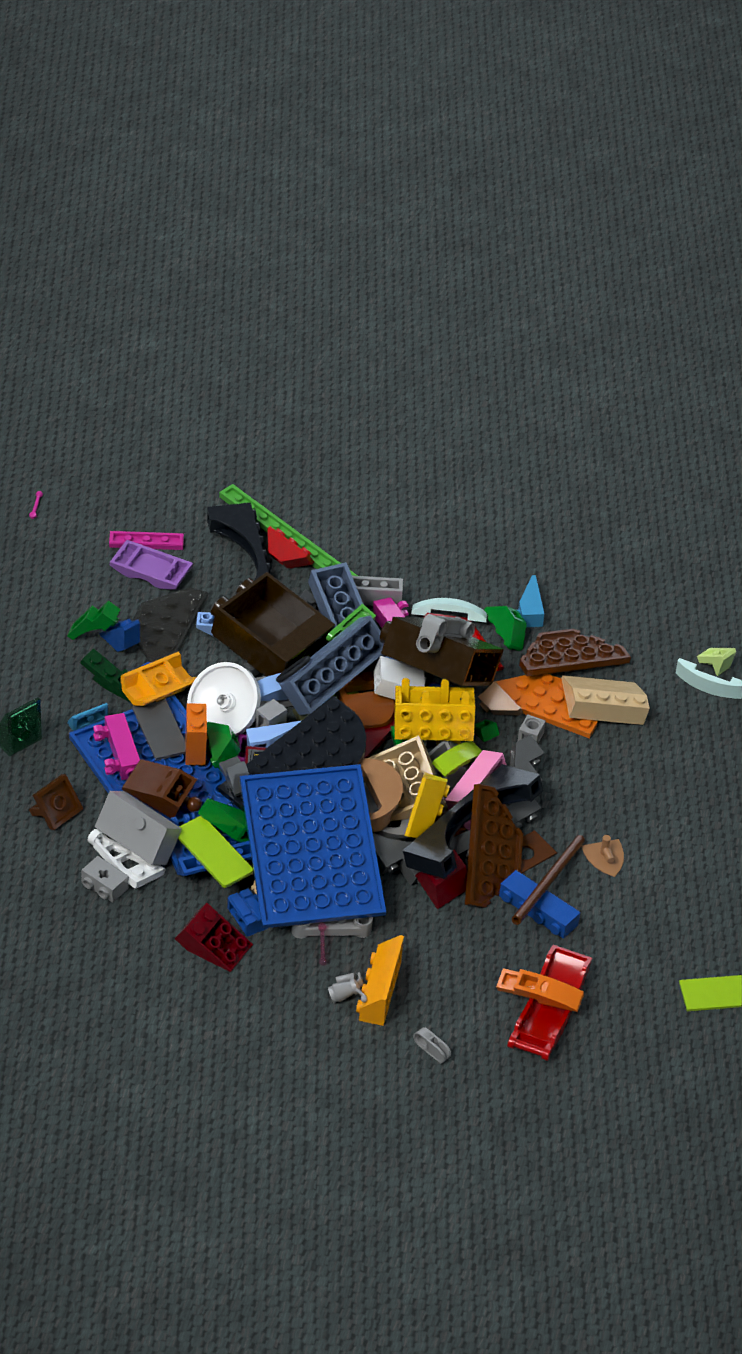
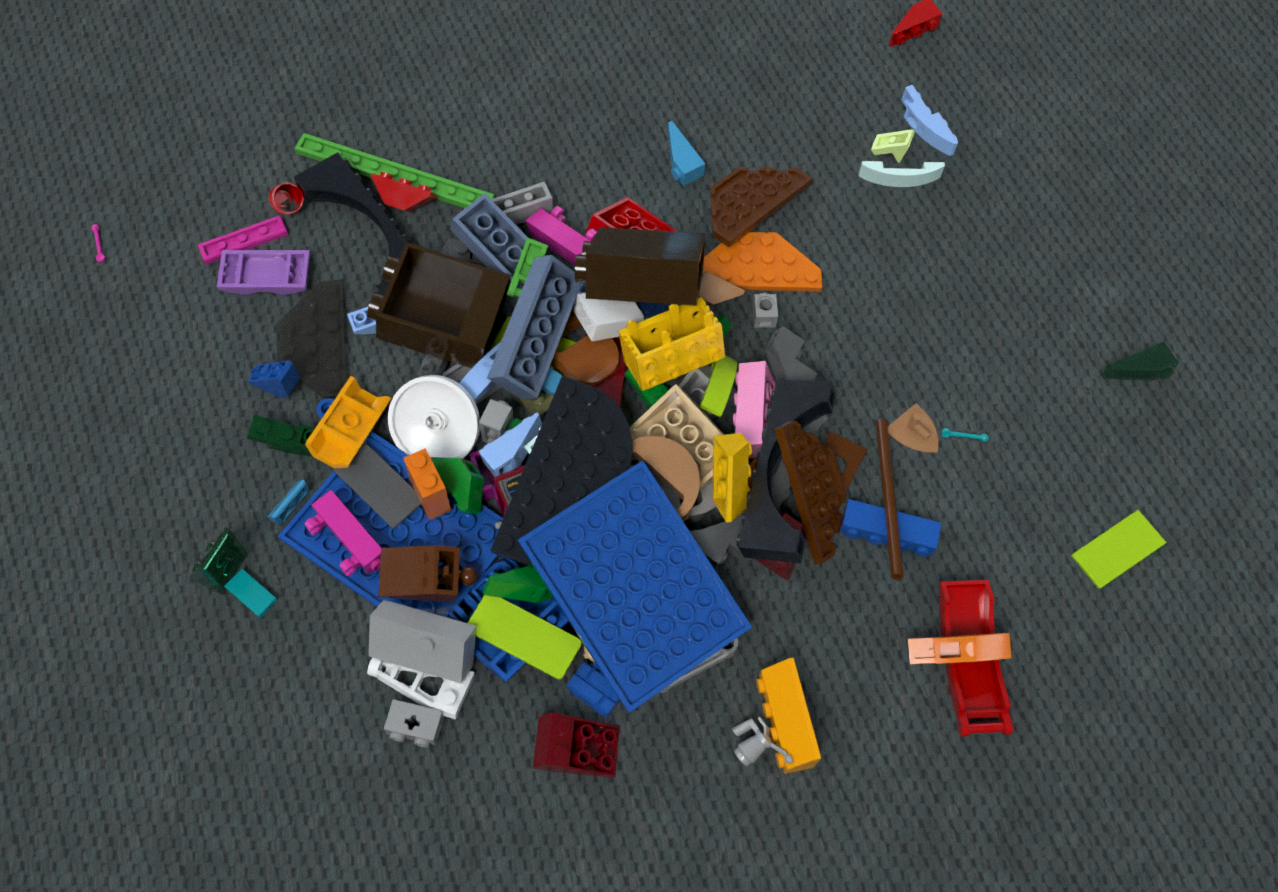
camera: 25 degrees left, 20 degrees up
(30, 762) = (251, 593): none -> teal tile
(56, 802) = (309, 644): reddish brown bracket -> none
(95, 619) = (238, 374): green slope -> none
(191, 518) = (279, 194): none -> red helmet
(232, 770) = (505, 530): dark grey slope -> none
(293, 669) = (503, 359): black tyre -> none
(322, 927) = (706, 713): clear pink hinge -> none
(432, 1045) = (882, 773): light grey piece -> none
(437, 627) = (646, 251): light grey piece -> none
(449, 604) = (602, 191): light aqua slope -> none
(508, 625) = (675, 191): green slope -> none
(605, 700) = (816, 240): tan slope -> none
(630, 866) = (947, 433): none -> teal hinge

